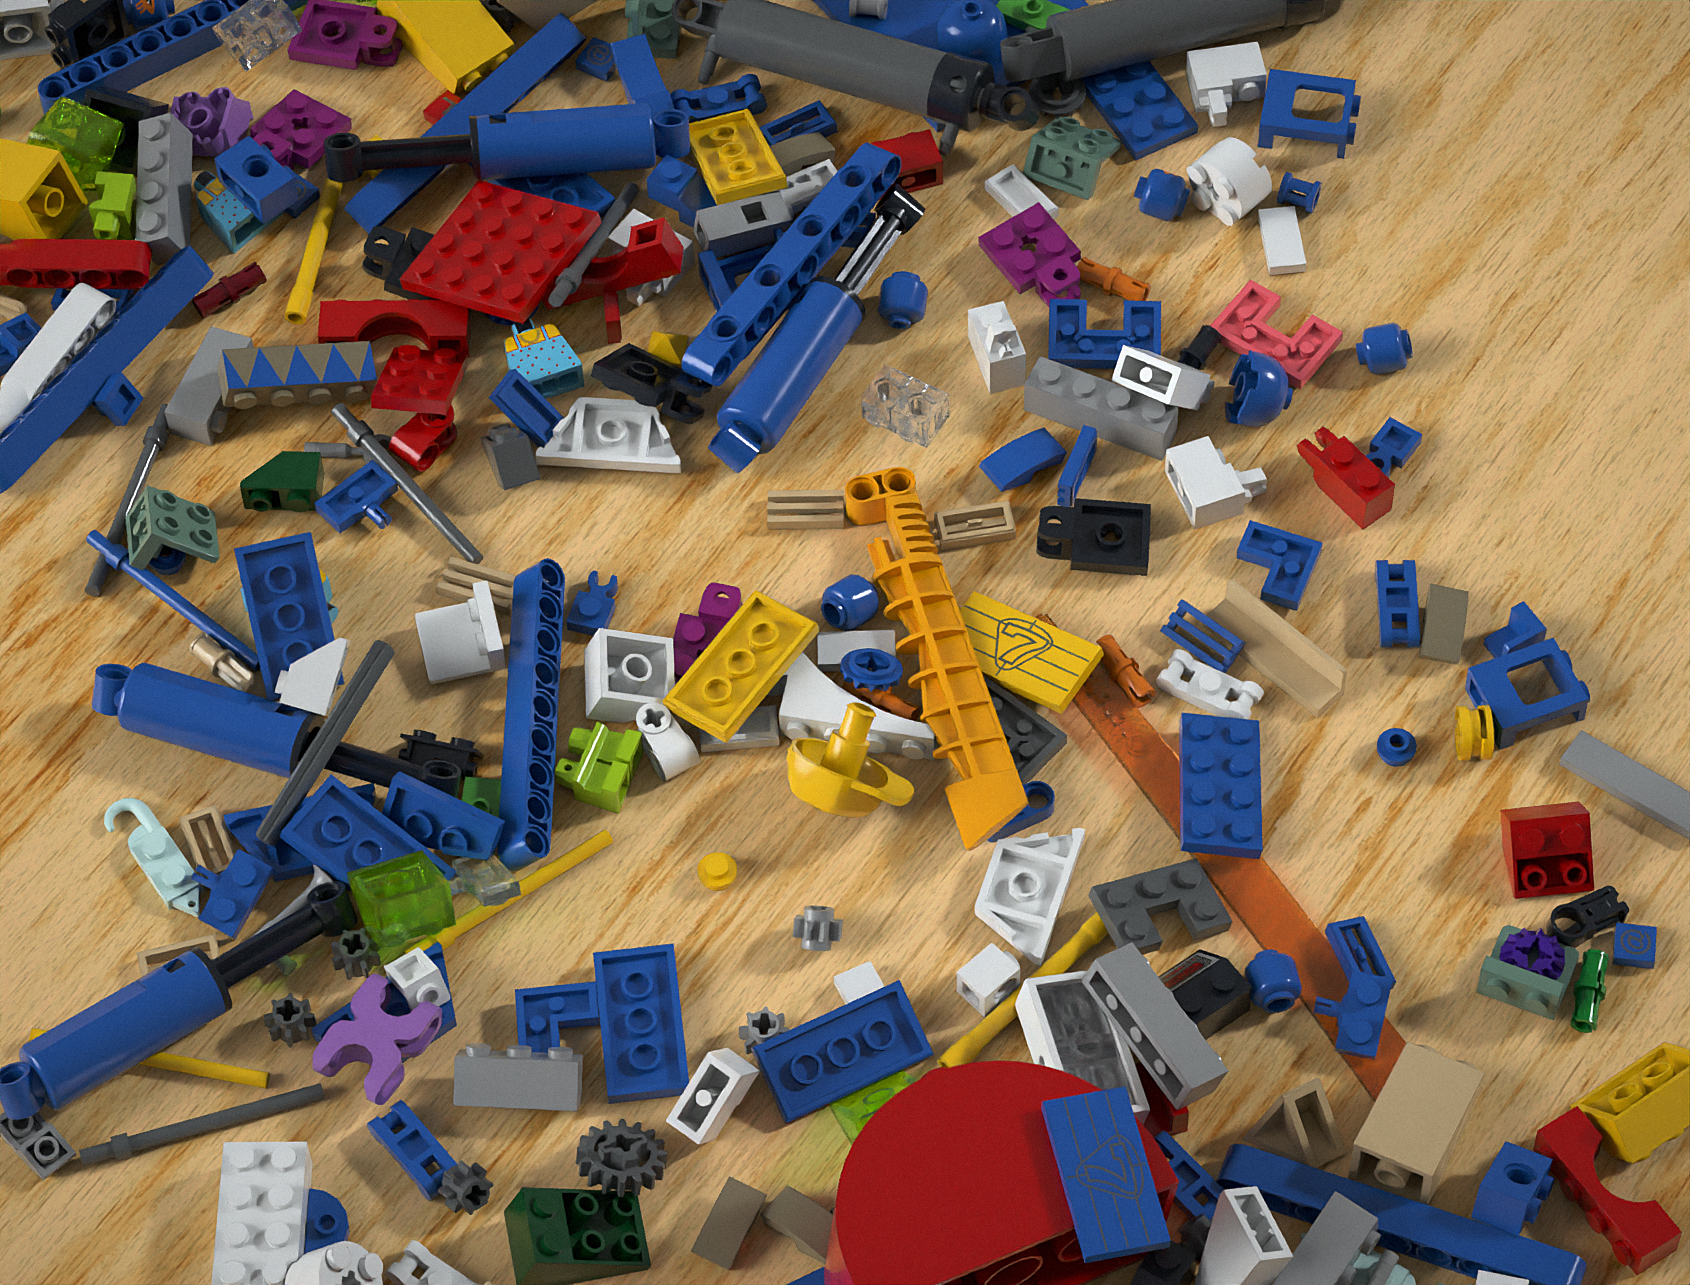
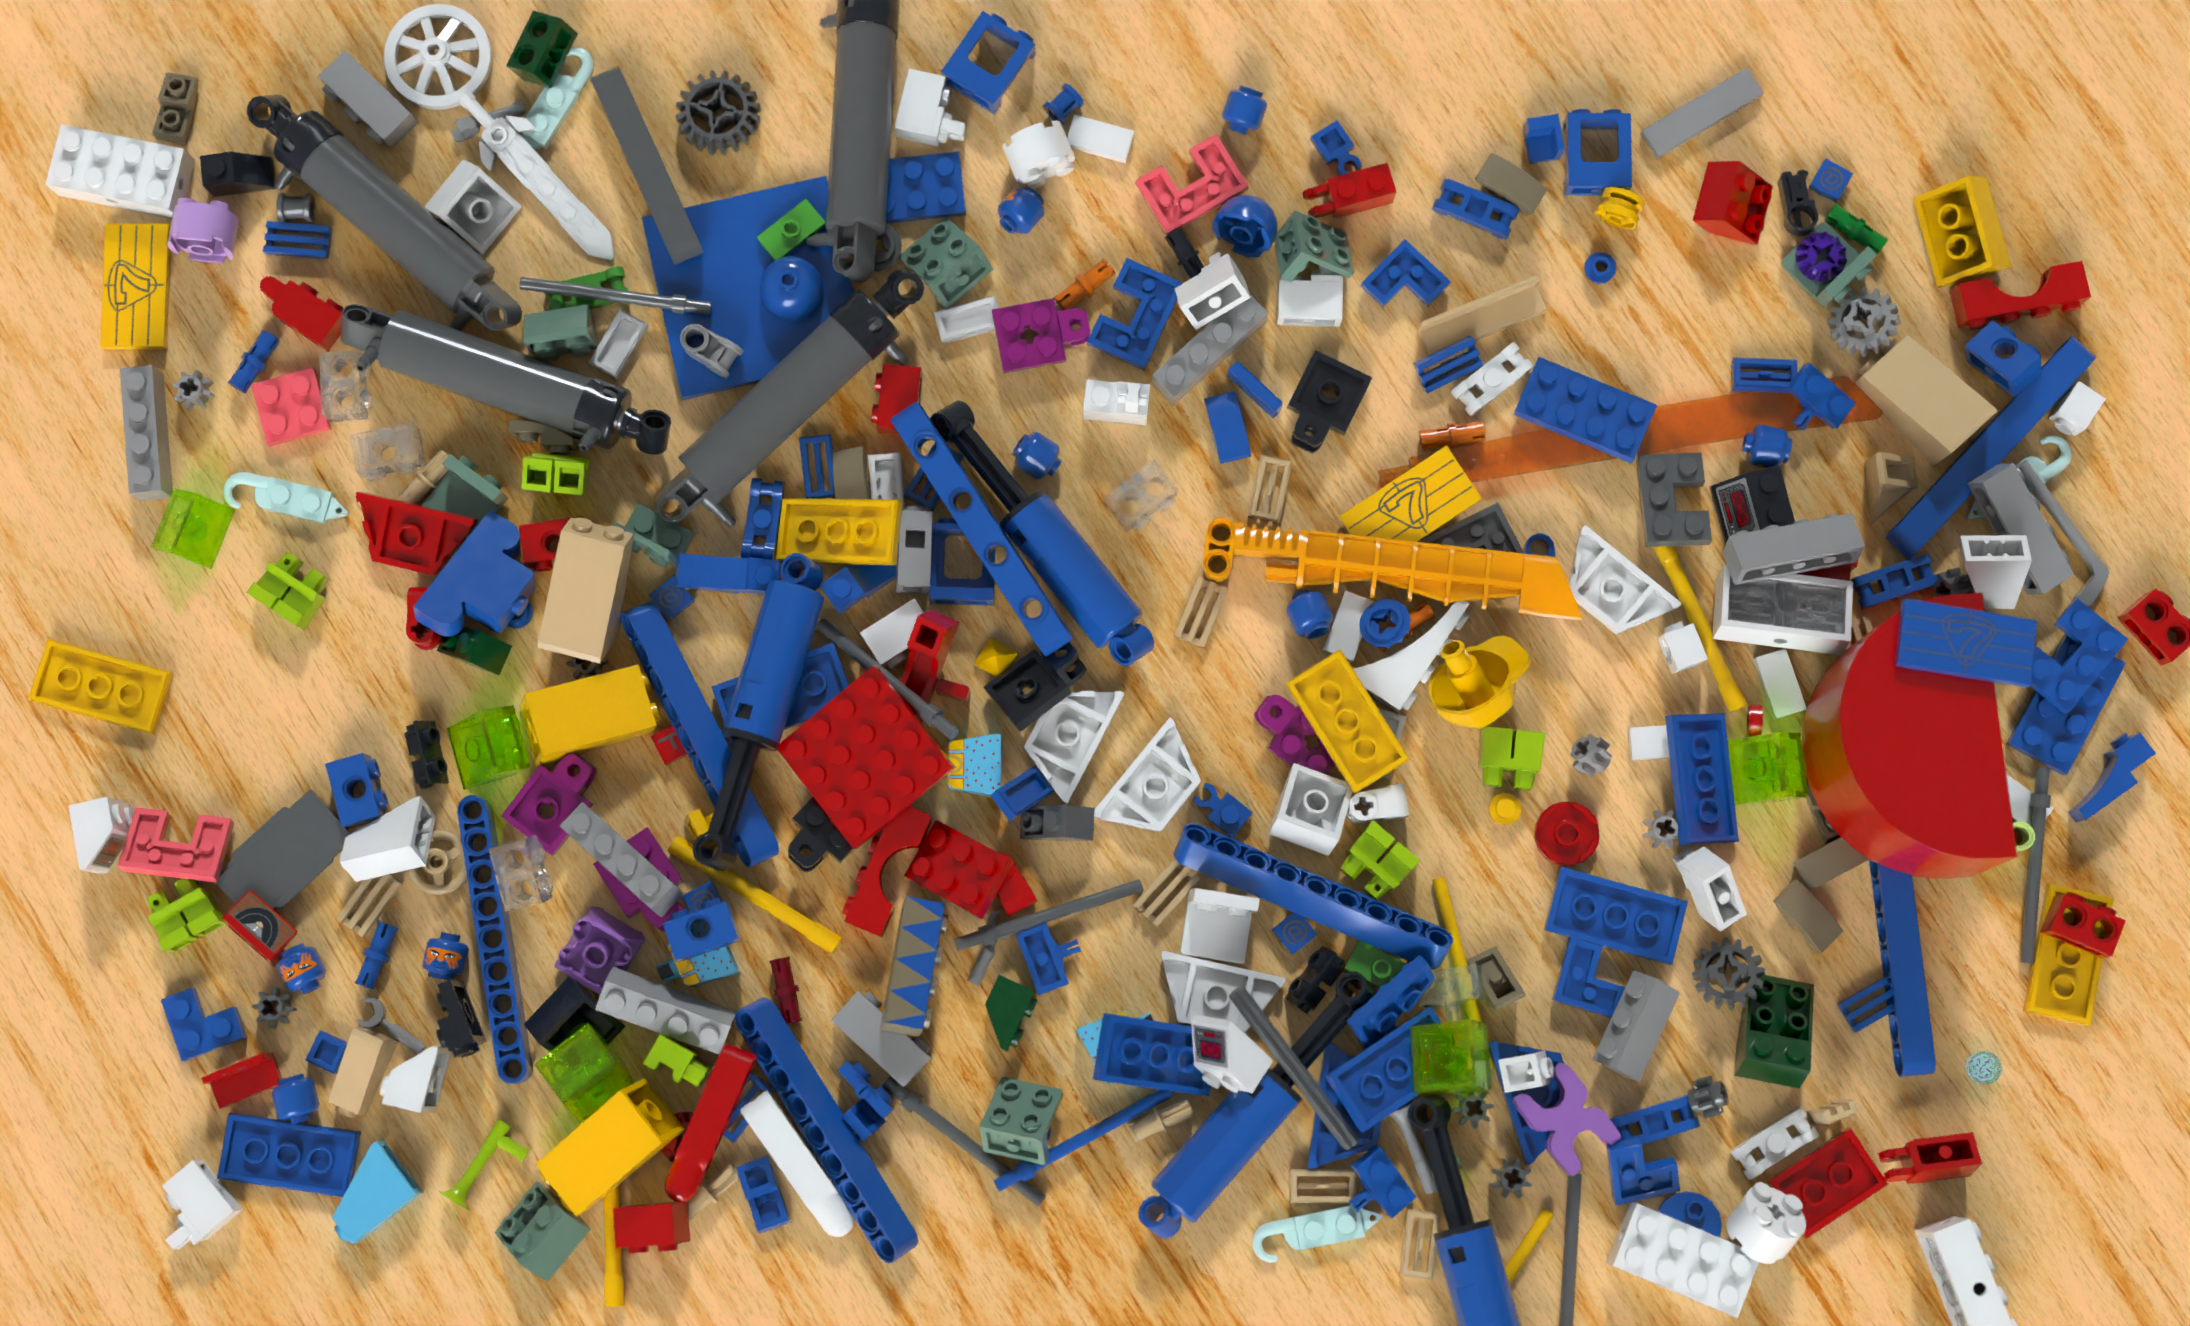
camera: 70 degrees left, 25 degrees up
(152, 386) = (877, 1098): none -> blue plate
(303, 93) = (621, 859): none -> light grey brick
(337, 1140) = (1637, 1180): none -> blue plate
(400, 689) = (1205, 988): none -> white wing
(484, 719) = (1294, 932): none -> blue tile
(509, 921) = (1498, 980): none -> dark tan slope
(594, 529) = (1153, 784): none -> white wing
(717, 946) = (1566, 833): none -> red tile
(784, 847) = (1497, 756): none -> lime hips
(1266, 457) = (1307, 239): none -> sand green bracket
(1478, 1029) = (1877, 313): none -> light grey gear

